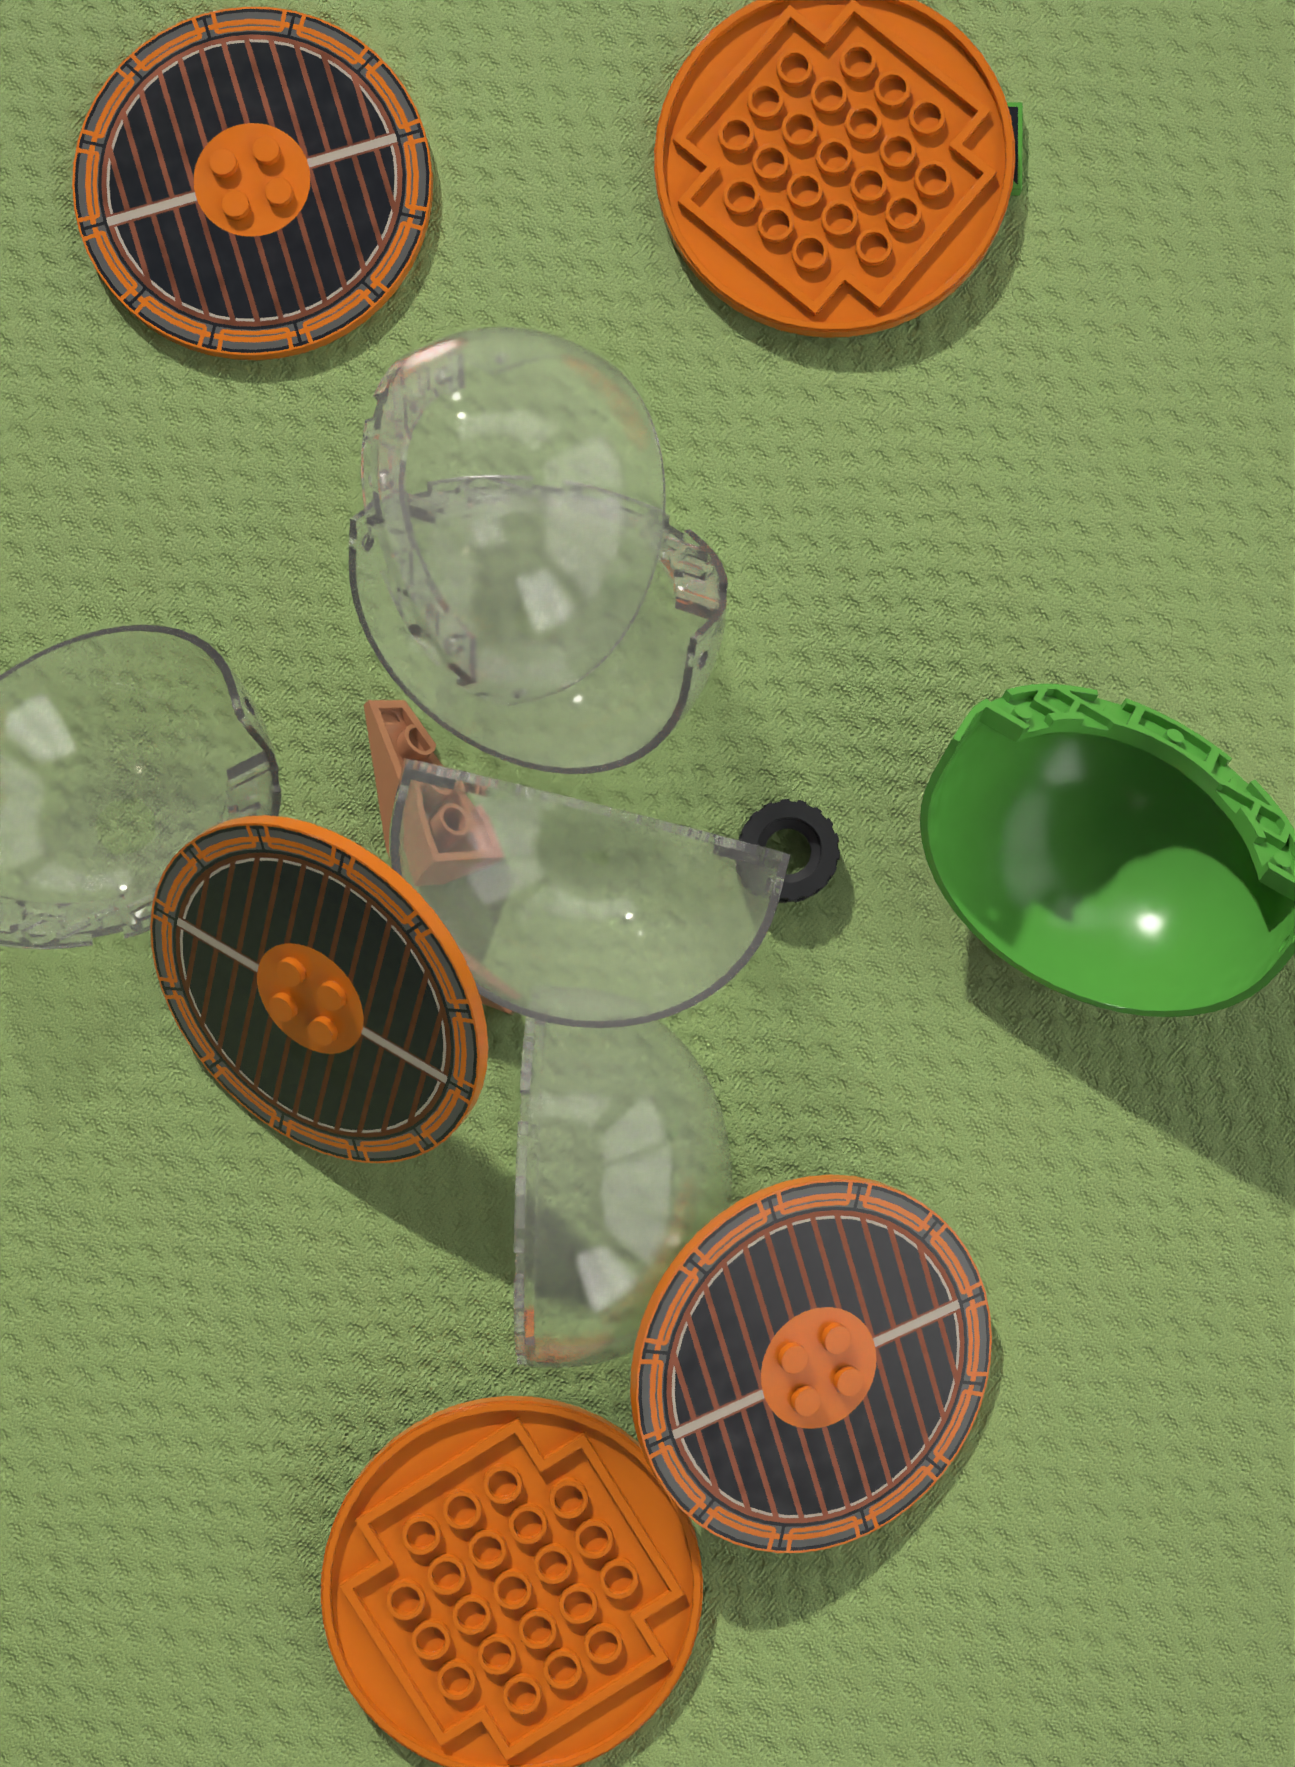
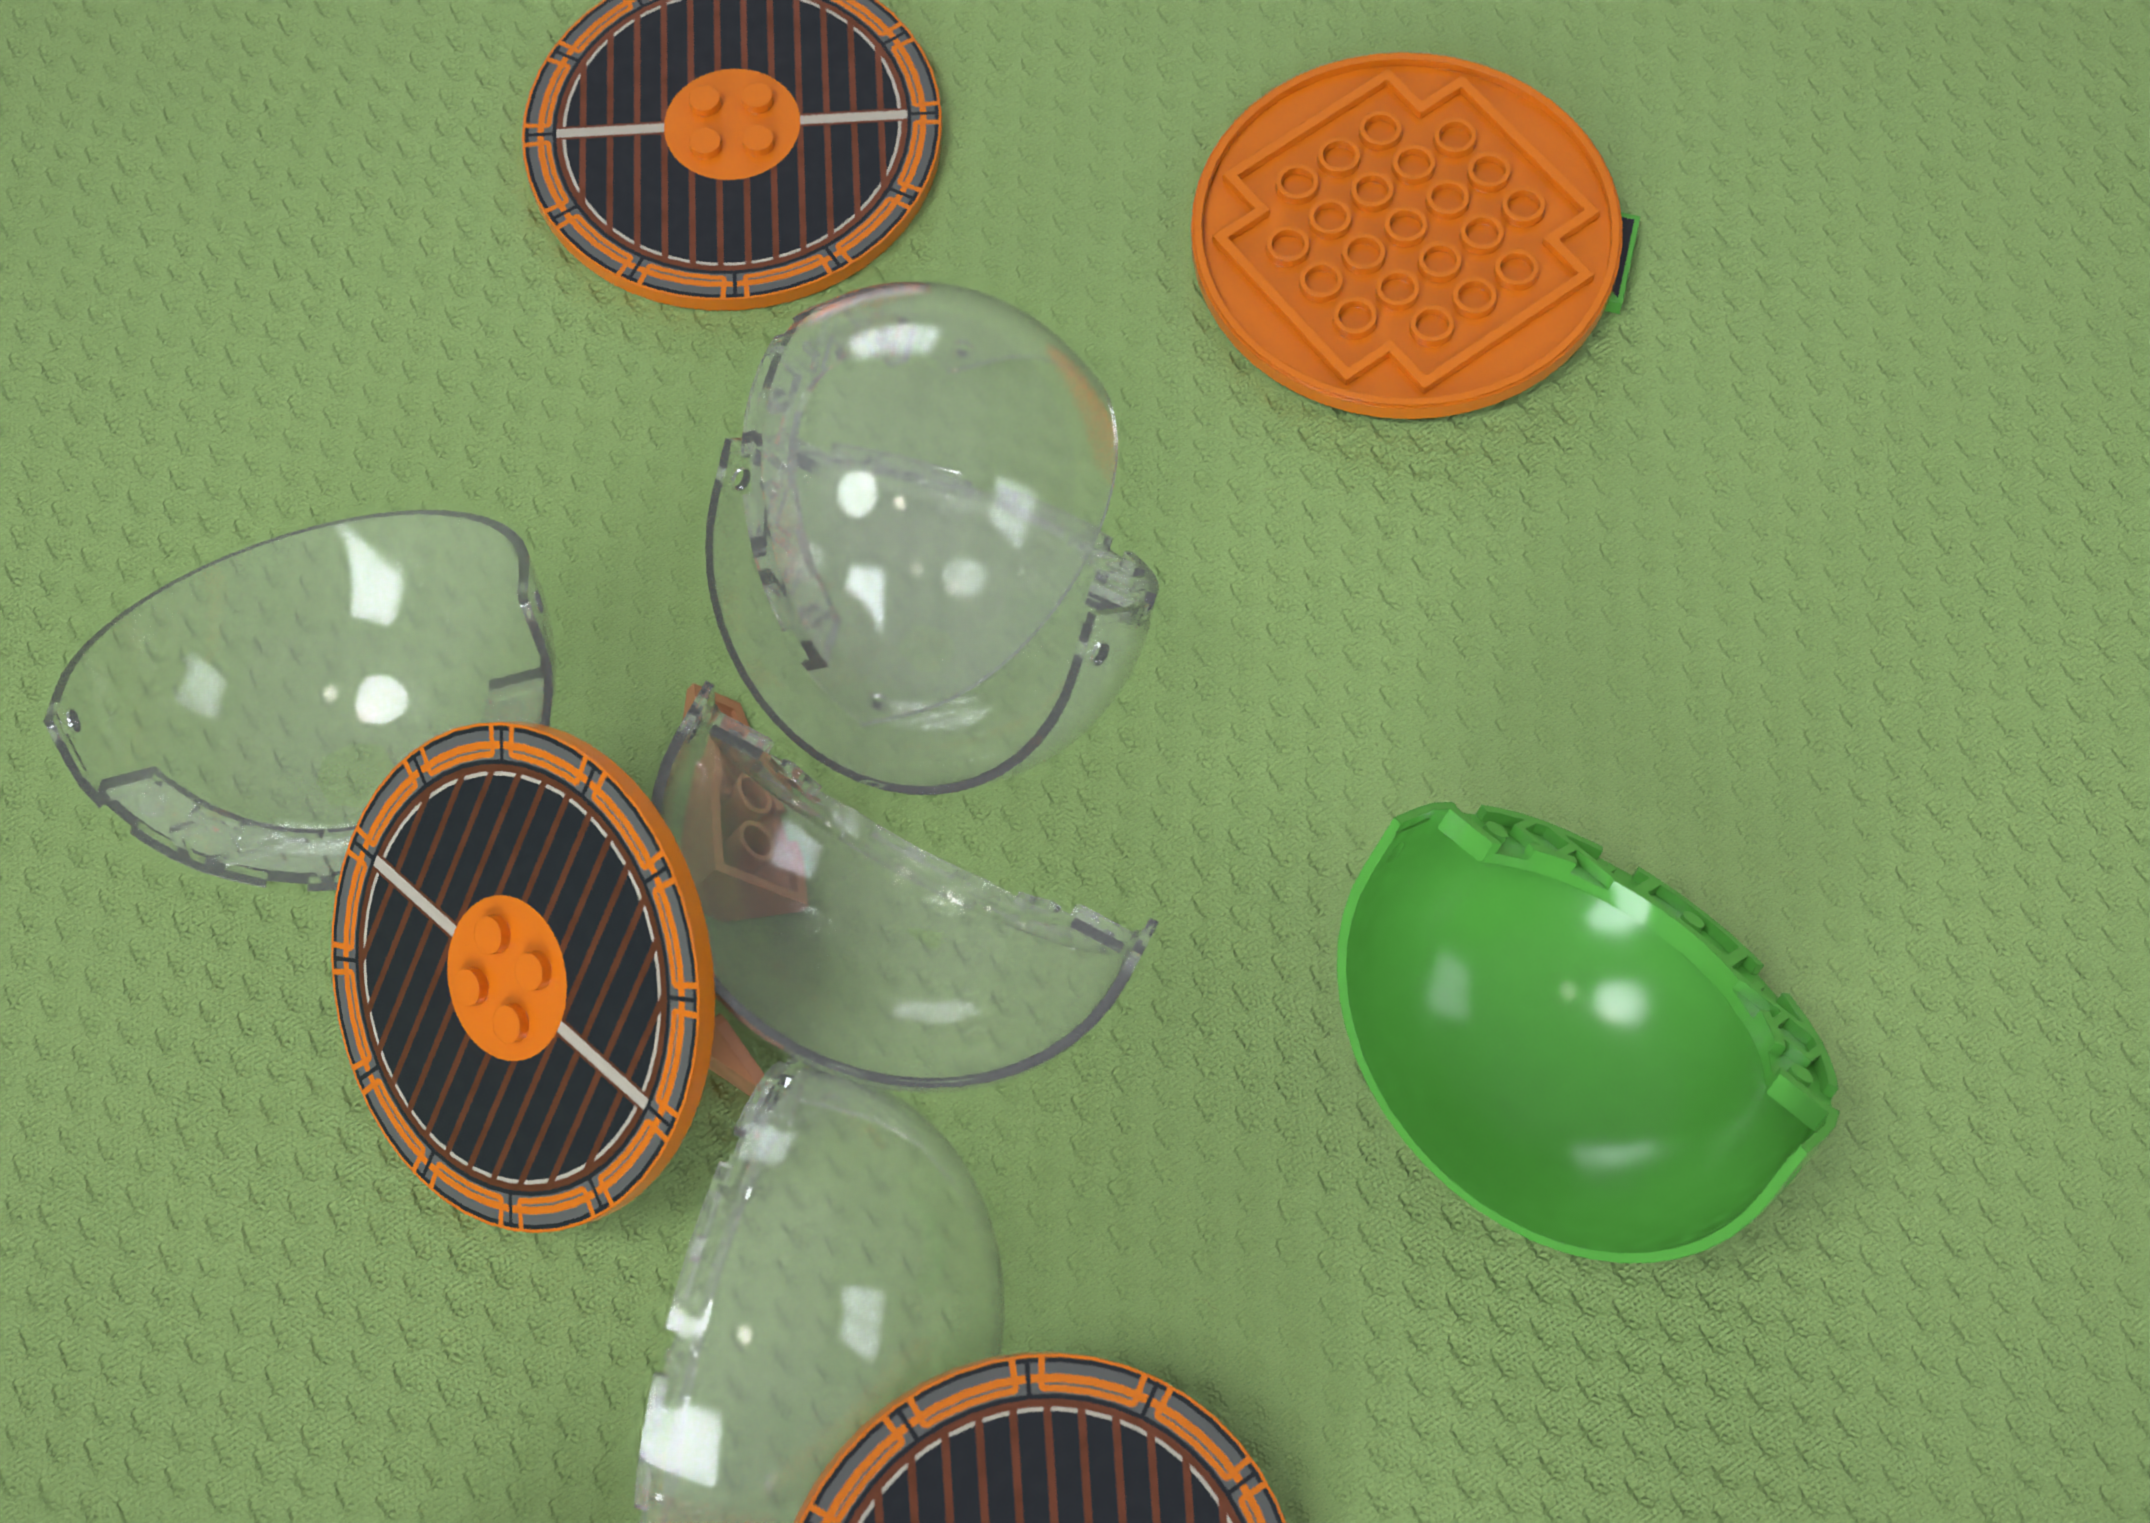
camera: 15 degrees right, 20 degrees down
(816, 830) = (1206, 1008): black tyre -> none

